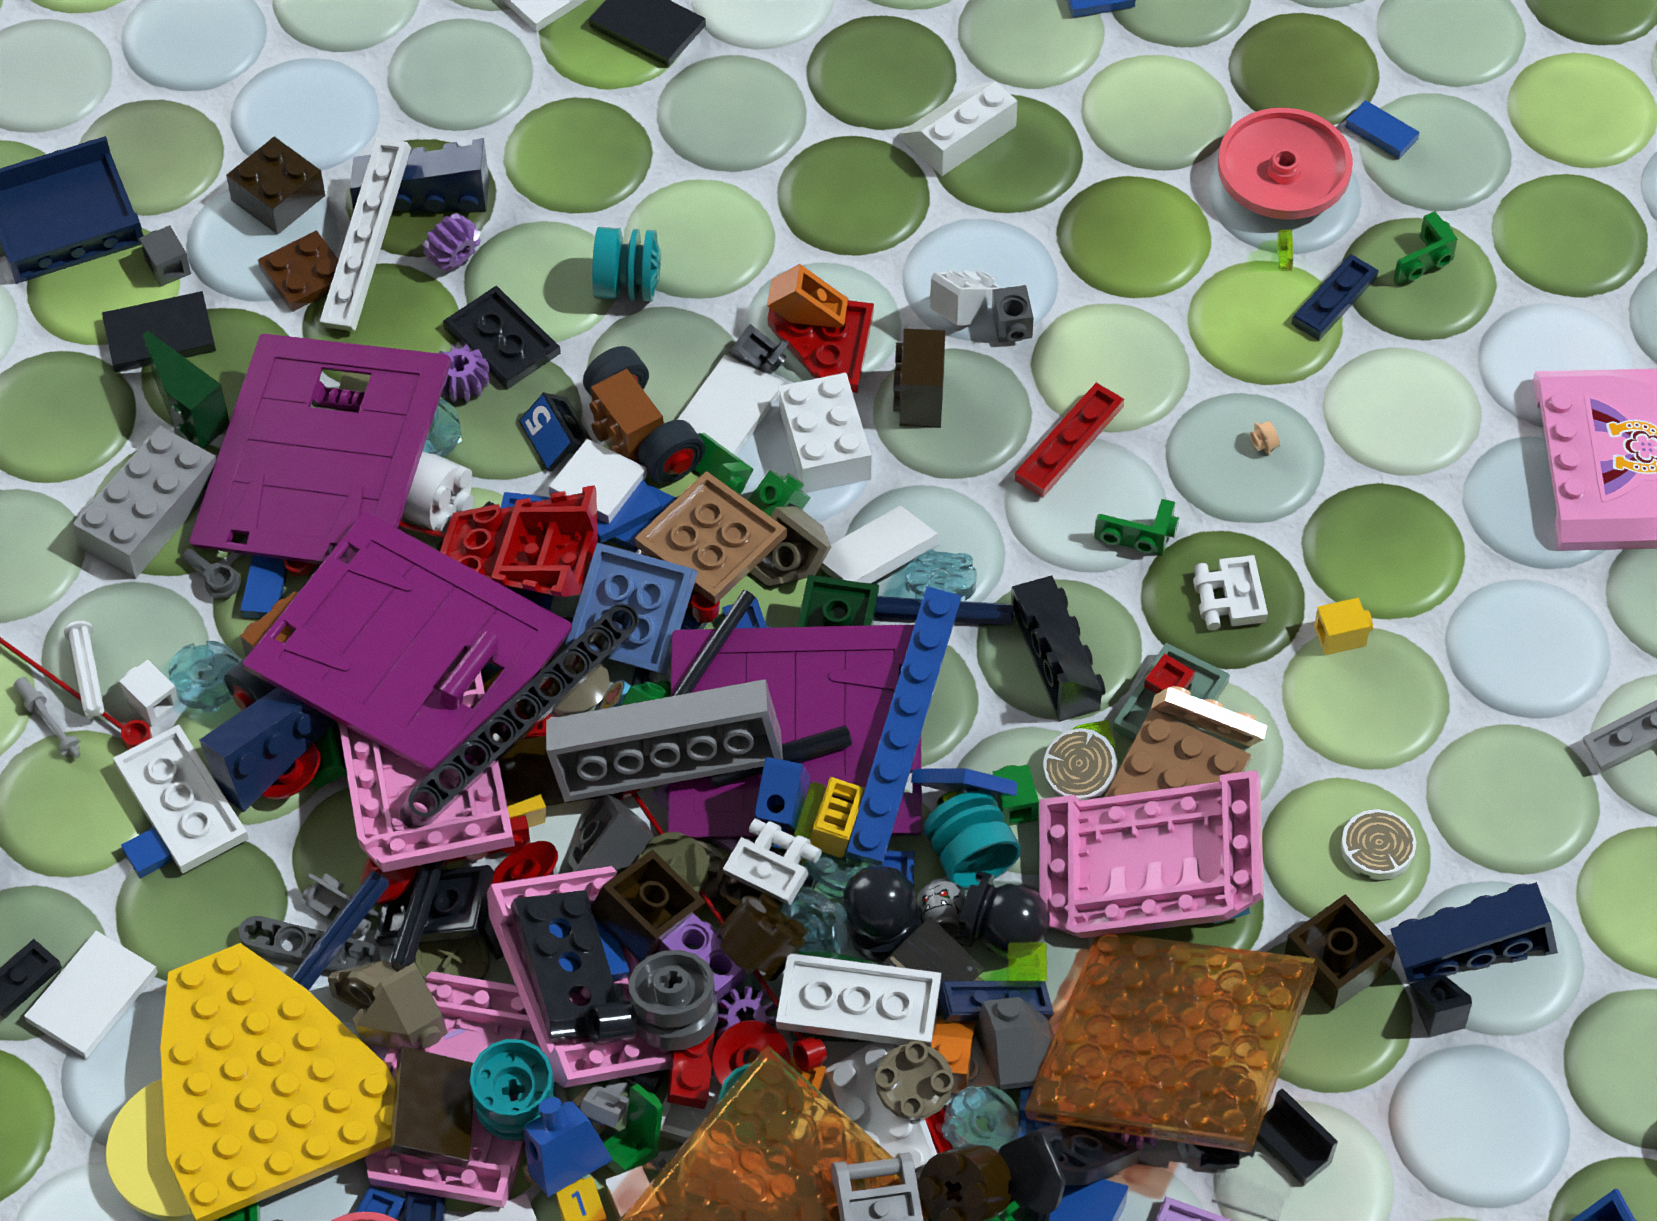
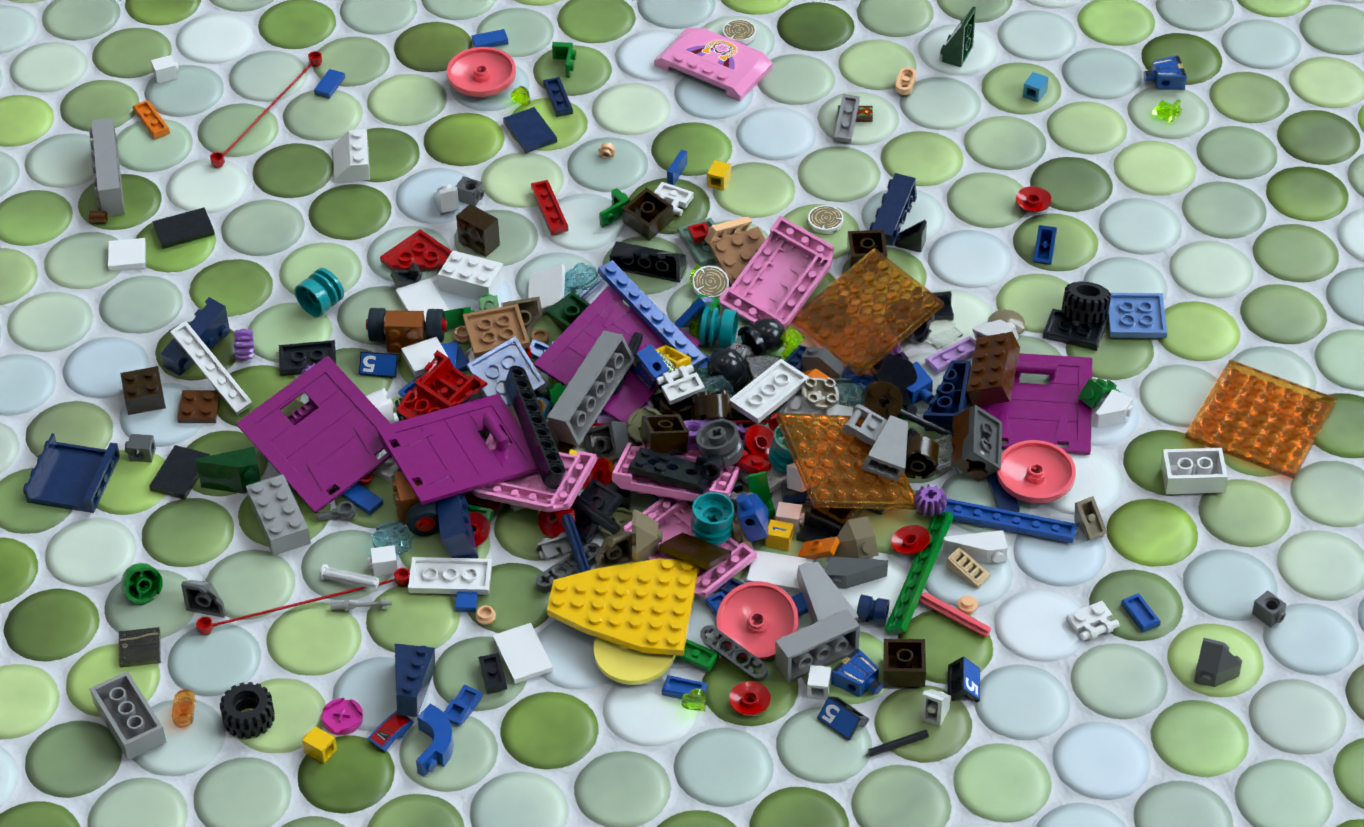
camera: 55 degrees left, 10 degrees down
(133, 895) = (485, 615): none -> light nougat plate
(715, 643) = (556, 353): black bar -> none
(776, 604) = (540, 335): none -> medium nougat tile
(806, 299) = (400, 244): orange slope -> none
(1156, 581) = (647, 213): none -> dark brown brick
(1225, 307) = (530, 129): none -> dark blue tile
(1308, 556) = (677, 167): none -> blue tile

